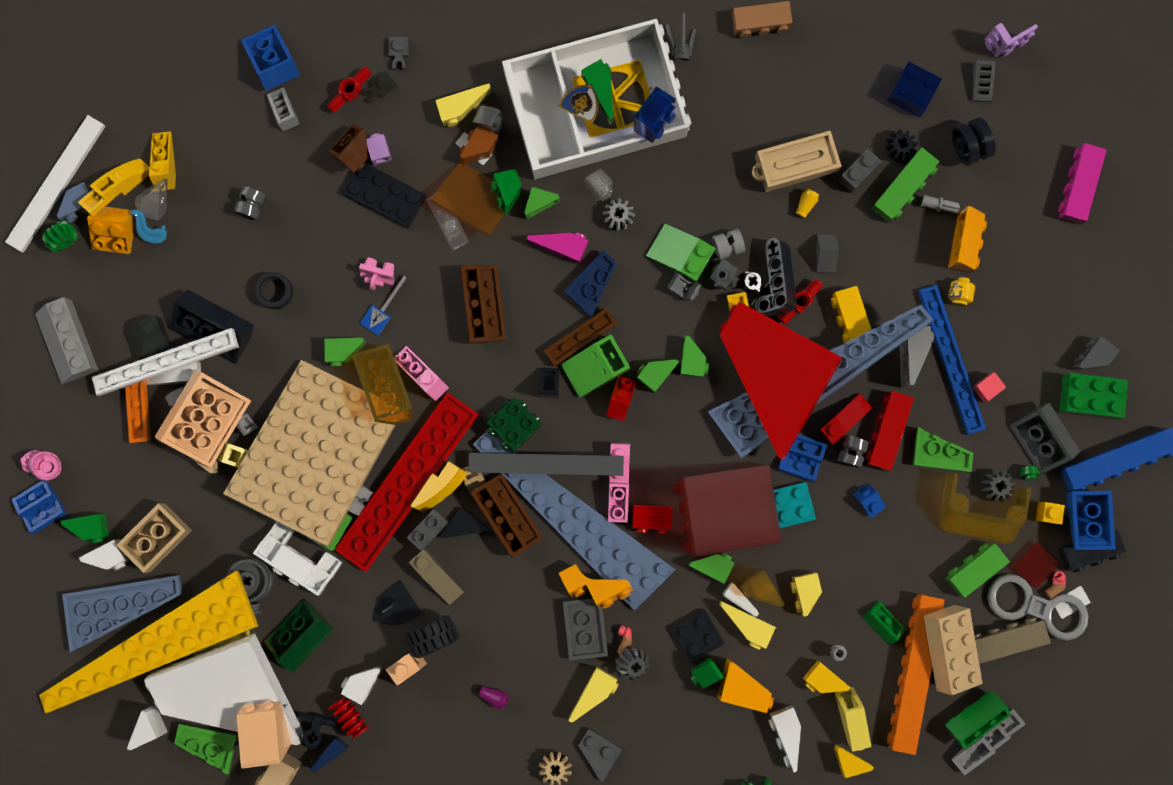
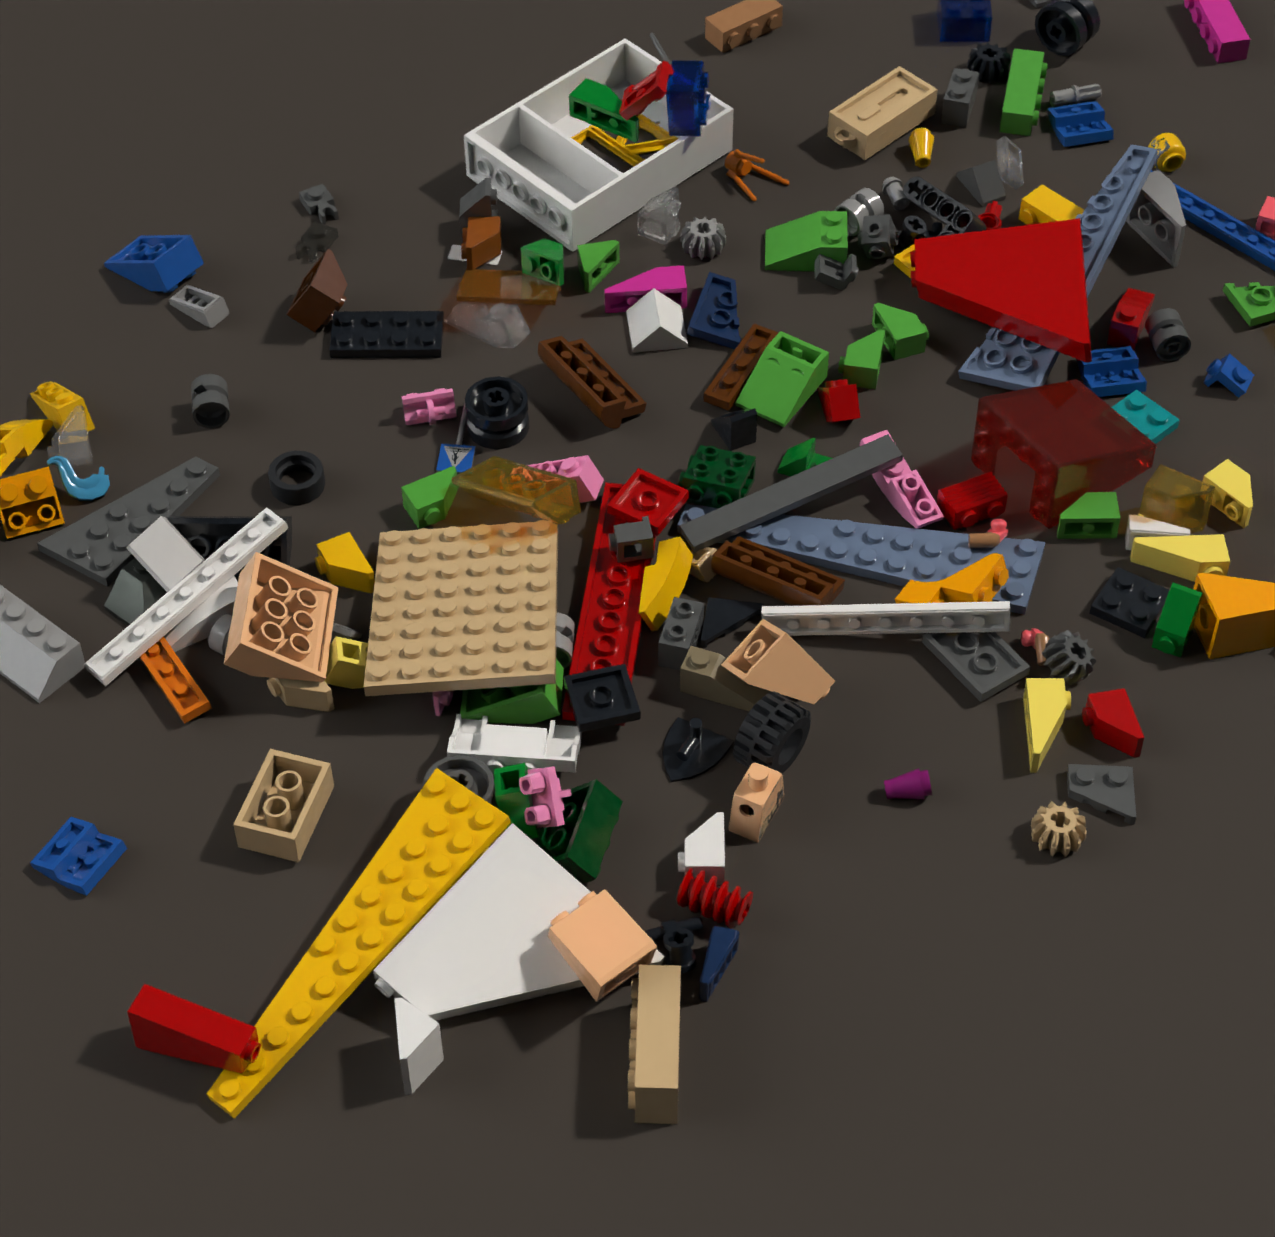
camera: 25 degrees left, 35 degrees down
(40, 665) = (191, 1031): none -> red slope
(41, 464) = (57, 793): bright pink hair -> none
(88, 527) = (170, 842): green slope -> none
(103, 610) = (253, 936): sand blue wing -> none
(106, 556) = (220, 865): white slope -> none
(156, 277) = (100, 540): none -> dark grey wing
(165, 328) = (165, 553): none -> white slope
(209, 744) = (519, 1036): bright green wing -> none
(269, 374) = (345, 563): none -> yellow slope
(277, 600) = (511, 799): none -> green slope
(287, 614) = (546, 797): none -> bright pink hips
(356, 82) = (278, 252): red axle -> none
(357, 557) = (602, 697): none -> black plate
(378, 149) = (358, 291): lavender brick -> none
(404, 295) = (497, 412): none -> black wheel
(433, 452) = (632, 541): none -> dark grey brick
(458, 595) = (778, 664): none -> light nougat slope
(459, 105) = (429, 217): light yellow slope -> none
(459, 426) = (648, 496): none -> red plate
(544, 584) = (890, 618): none -> white tile
(550, 273) = (656, 324): none -> white slope
(576, 436) = (801, 458): none -> green slope
(581, 102) = (589, 121): shield -> none
(624, 110) = (642, 94): none -> red plate
(631, 714) = (1114, 721): none -> red slope
(643, 554) = (991, 537): none -> medium nougat arm
(681, 158) = (740, 164): none -> orange plant
(765, 234) = (893, 188): none -> light grey pin
(854, 247) = (1009, 162): none -> clear plate
(889, 431) = (1194, 301): red brick -> none
(926, 231) = (1080, 123): none -> blue slope
(967, 240) = (1131, 105): light orange slope -> none

